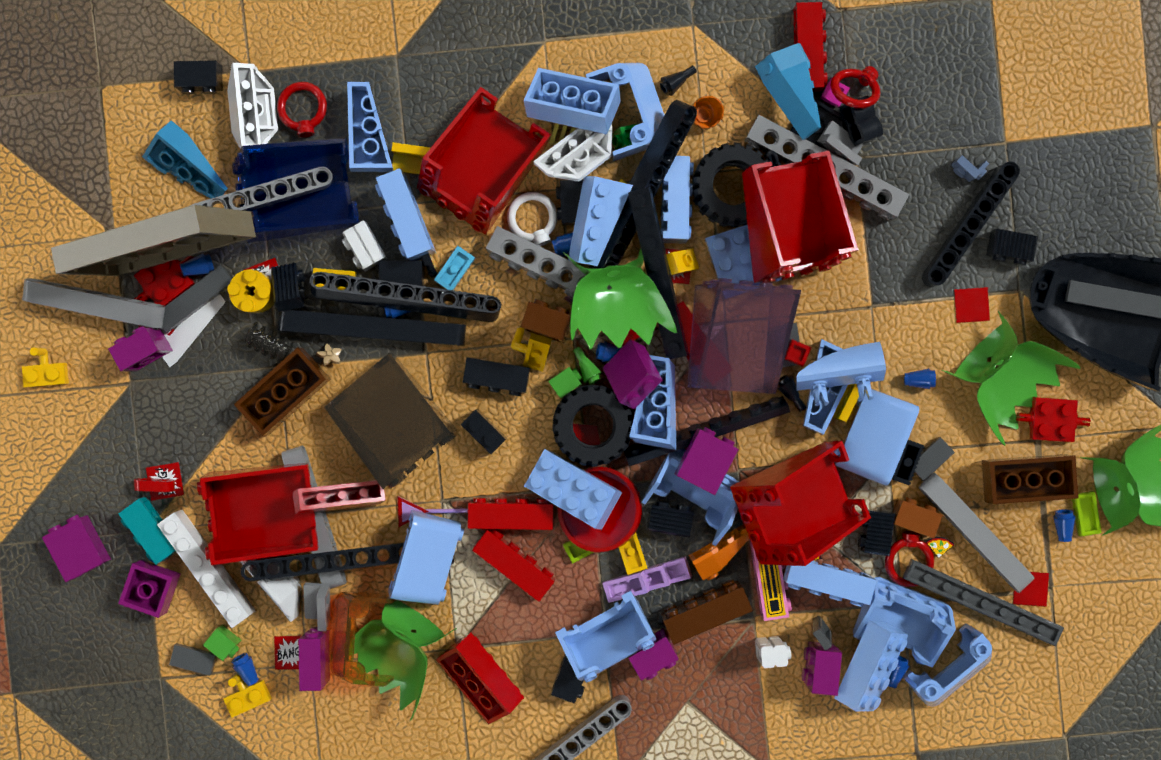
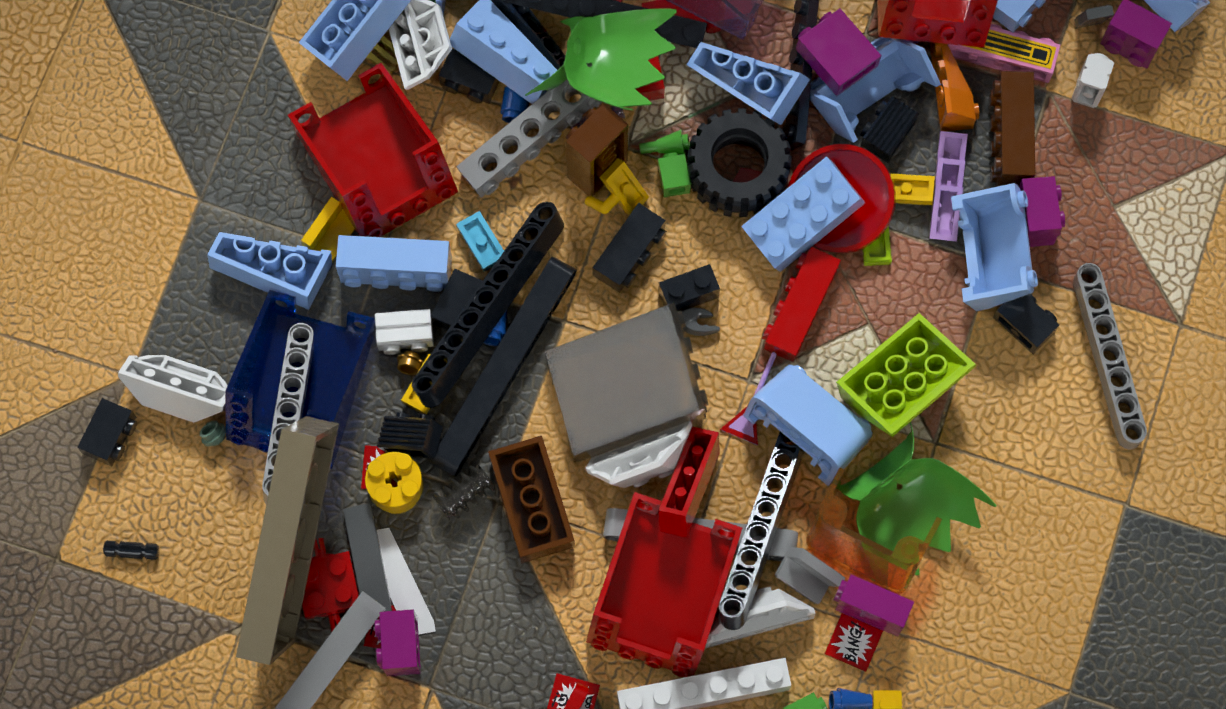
camera: 70 degrees left, 15 degrees down
(127, 134) = (131, 550): none -> black axle
(177, 154) = (193, 496): dark azure wedge -> none
(198, 265) = (331, 533): blue cone -> none
(230, 149) = (213, 433): none -> sand green plate
(305, 127) = (230, 338): red piece -> none
(330, 355) = (513, 429): tan plant -> none
(338, 454) = (642, 458): none -> white wedge
(344, 260) = (409, 363): none -> pearl gold plate
(429, 263) = (464, 265): black tile -> none
(462, 440) = (691, 327): none -> dark grey hand
(480, 678) = (984, 426): red slope -> none
(484, 614) = (904, 376): none -> lime slope
(514, 564) = (861, 326): red brick -> none
(541, 236) = (490, 126): white piece -> none
(606, 351) = (662, 111): blue cone -> none
(632, 374) = (700, 89): magenta brick -> none

